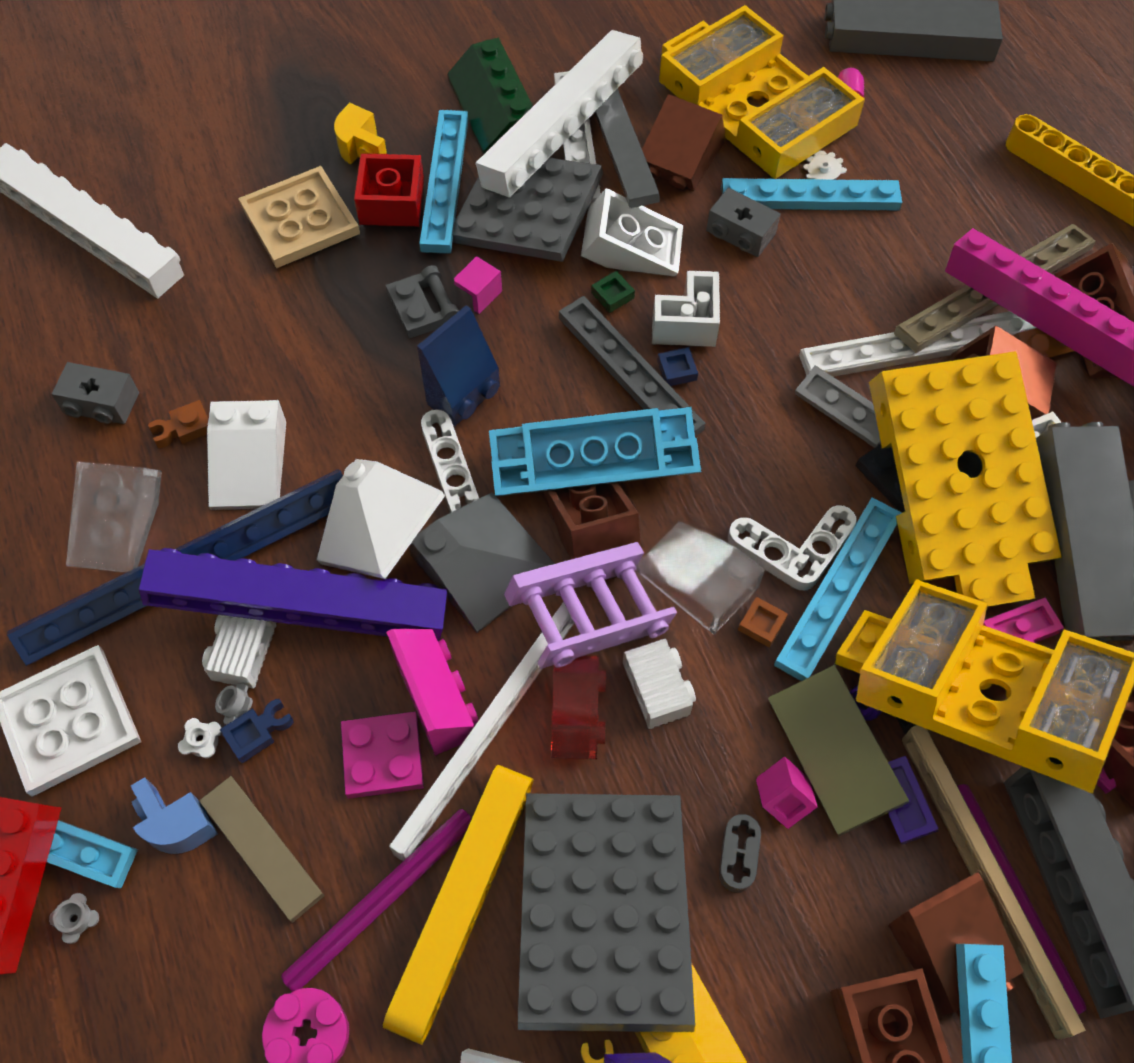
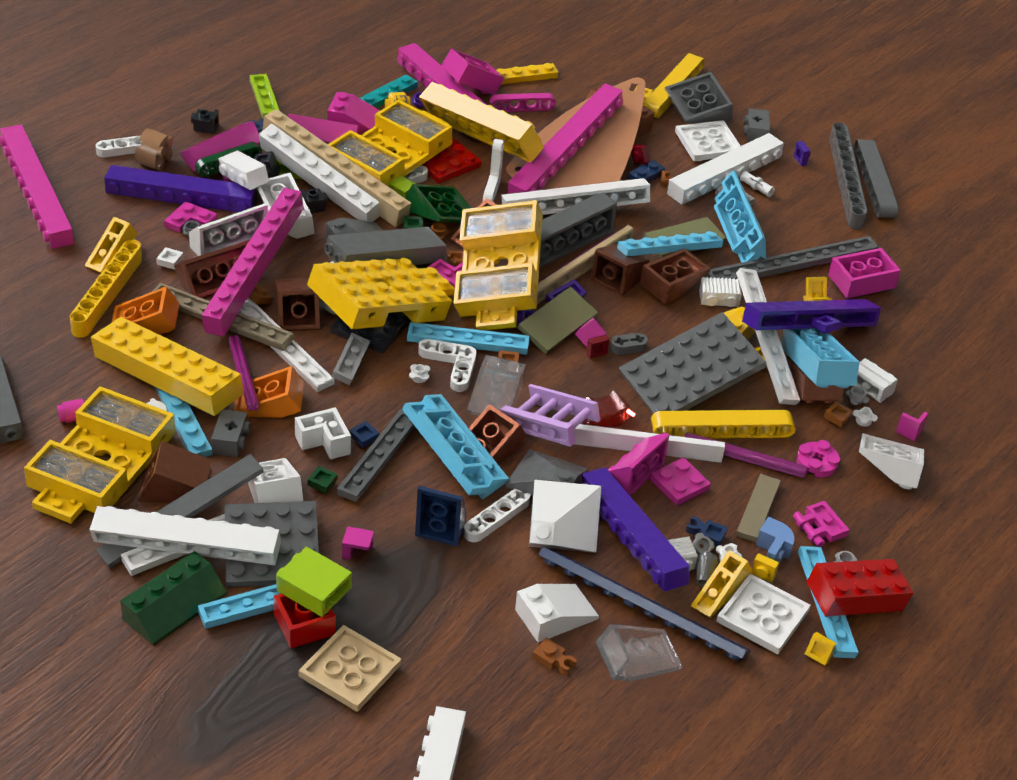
camera: 120 degrees left, 20 degrees down
(95, 393) = (566, 707): dark grey brick -> none
(133, 768) = (764, 568): none -> yellow plate
(145, 689) = (722, 584): none -> yellow slope
(164, 941) = (826, 521): none -> dark pink plate
(192, 685) = (705, 567): none -> dark grey cone
(357, 133) = (255, 667): yellow brick -> none
(406, 182) = (313, 581): none -> lime brick
(413, 306) = (388, 578): dark grey plate -> none
(658, 683) = (573, 383): white brick -> none
(745, 783) = (597, 346): none -> dark red plate
(781, 495) = (419, 373): none -> white plate
(797, 288) = (277, 394): none -> orange slope
(855, 267) = (242, 368): none -> magenta axle
(887, 181) = (168, 365): none -> yellow brick
(1020, 207) = (153, 311): none -> orange slope

